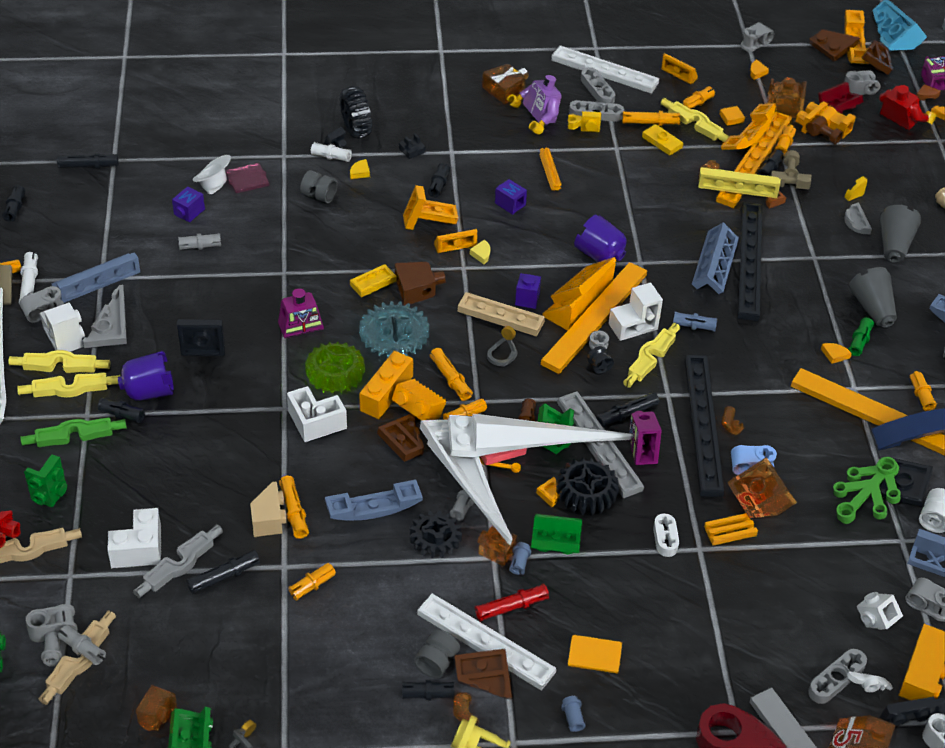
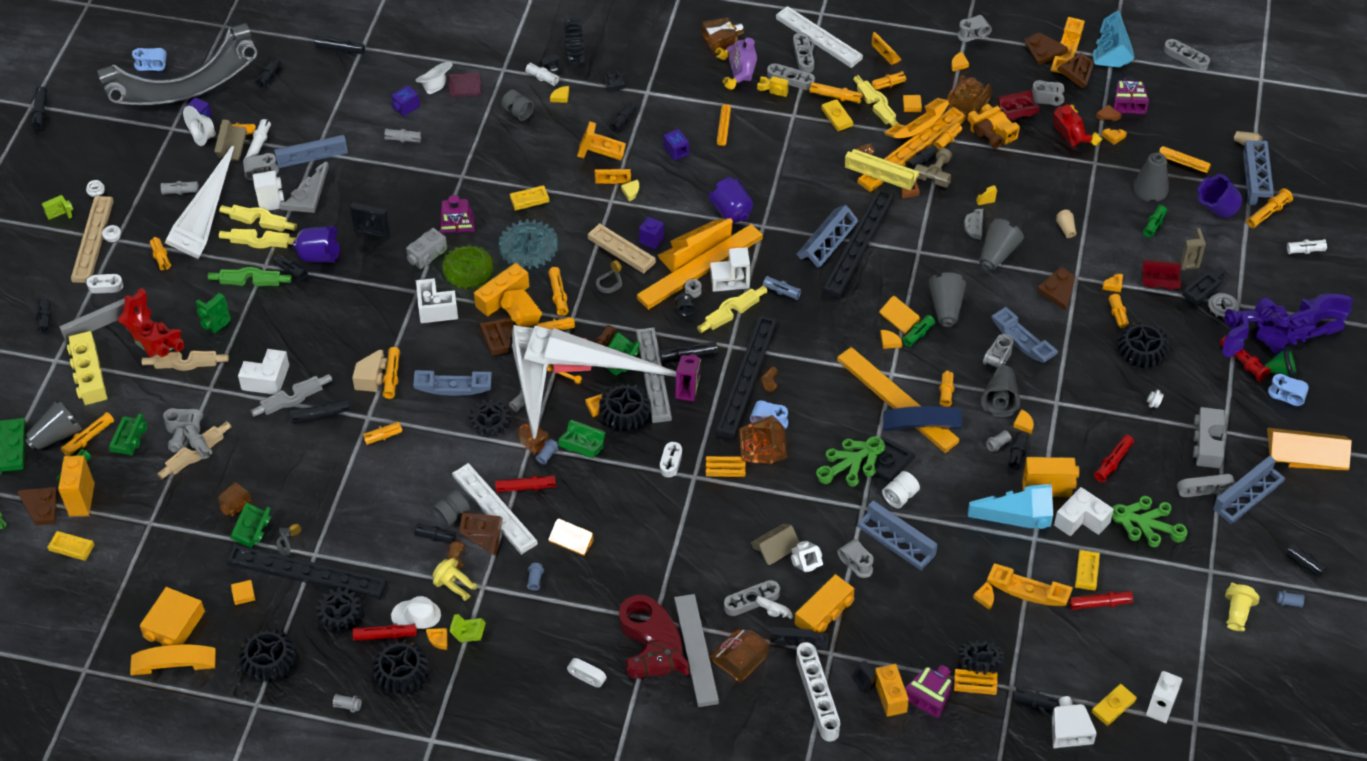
camera: 20 degrees right, 5 degrees up
(278, 356) = (426, 248): none -> light grey brick
(417, 281) = (564, 206): reddish brown torso -> none
(833, 324) = (899, 315): none -> light orange slope
(833, 603) = (776, 543): none -> dark tan panel

